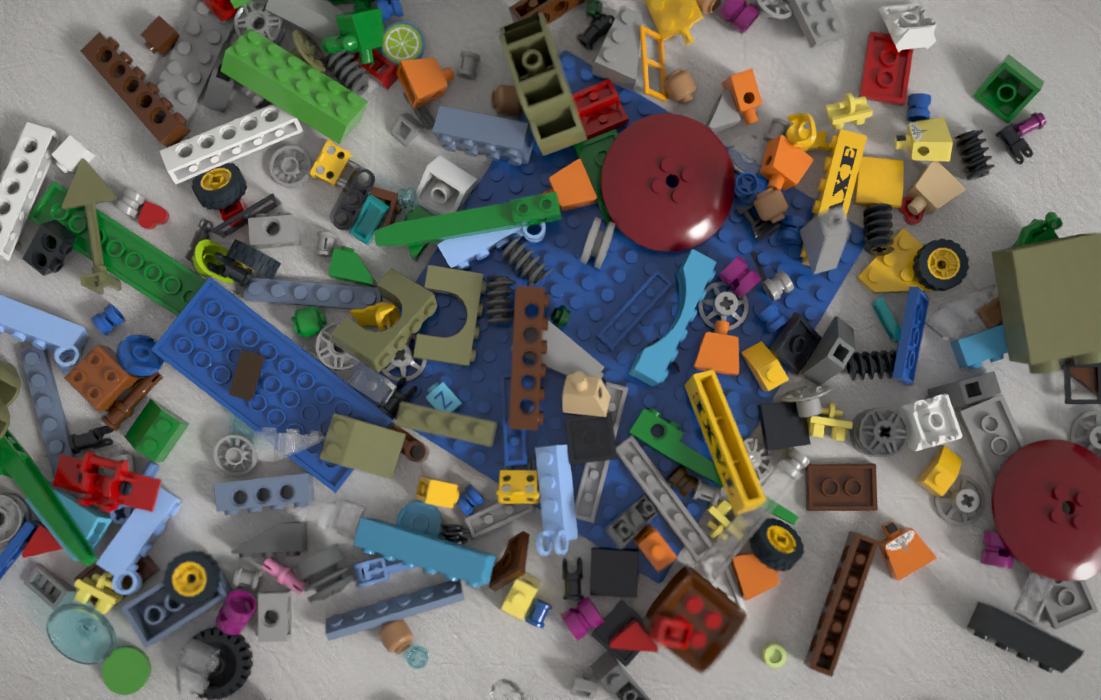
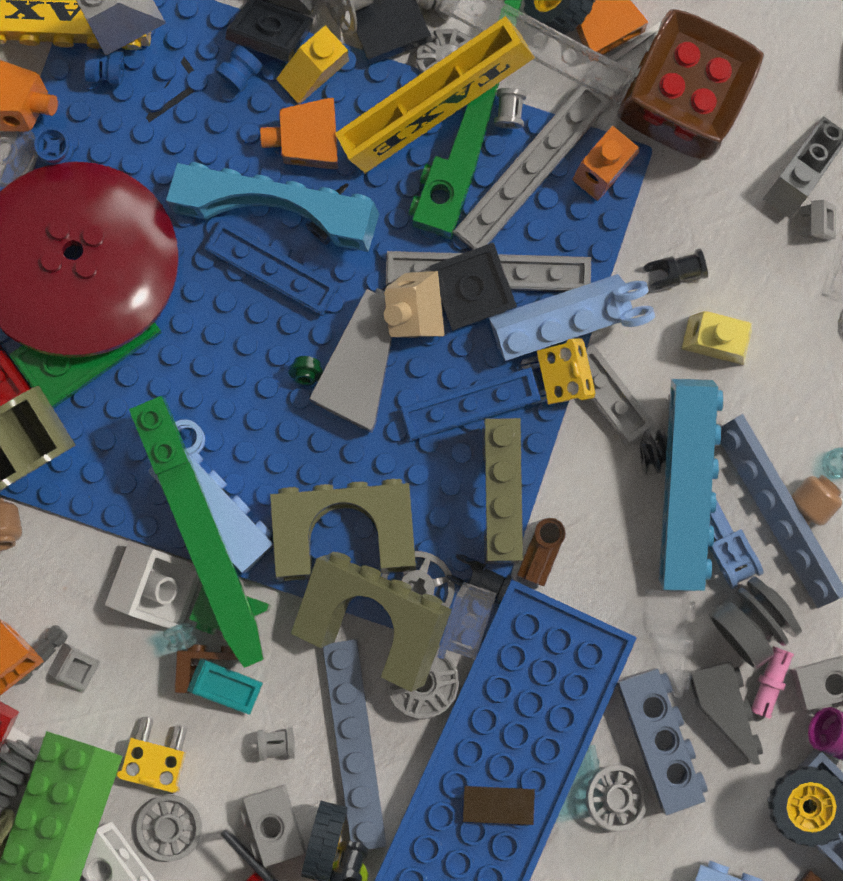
camera: 105 degrees left, 0 degrees up
(247, 578) = (789, 734): light grey bush -> none
(277, 446) = (590, 731): clear slope -> none
(308, 321) = (397, 738): green head -> none
(349, 267) = (302, 697): green slope -> none
(362, 192) = (182, 724): black beam -> none
(362, 446) = (561, 609): olive slope -> none
(379, 315) = (361, 632): yellow hair -> none
(421, 518) = (642, 506): dark azure tile -> none
(437, 492) = (601, 489): yellow slope -> none
(443, 398) = (465, 511): medium azure brick -> none
(473, 496) = (593, 438): blue wheel -> none
(483, 135) = (63, 543): sand blue brick -> none
(499, 299) = (302, 462): dark grey piece -> none
(512, 563) = (673, 357): reddish brown tile -> none
(523, 298) = (469, 392): reddish brown brick -> none
(525, 262) = (239, 437): dark grey piece -> none
(538, 613) = (736, 306): blue bush -> none
(572, 187) = (109, 396): orange torso -> none
(582, 618) = (727, 243): magenta wheel -> none
(597, 243) = (187, 338): light grey wheel -> none
(614, 572) = (652, 214): black tile -> none
(614, 622) = (733, 184): black tile -> none
(631, 521) = (577, 204): dark grey slope -> none
(633, 638) = (737, 166): red slope -> none
(670, 632) = (718, 107): red slope -> none
(682, 481) = (502, 146): dark brown wheel -> none
(718, 512) = (536, 85): light yellow hips -> none
(724, 305) = (235, 140): light grey wheel -> none
(739, 276) = (191, 126): magenta wheel -> none
(758, 228) = (105, 107): black piece -> none
(771, 205) = (77, 103): medium nougat head -> none
(777, 285) = (190, 71): light grey wheel -> none

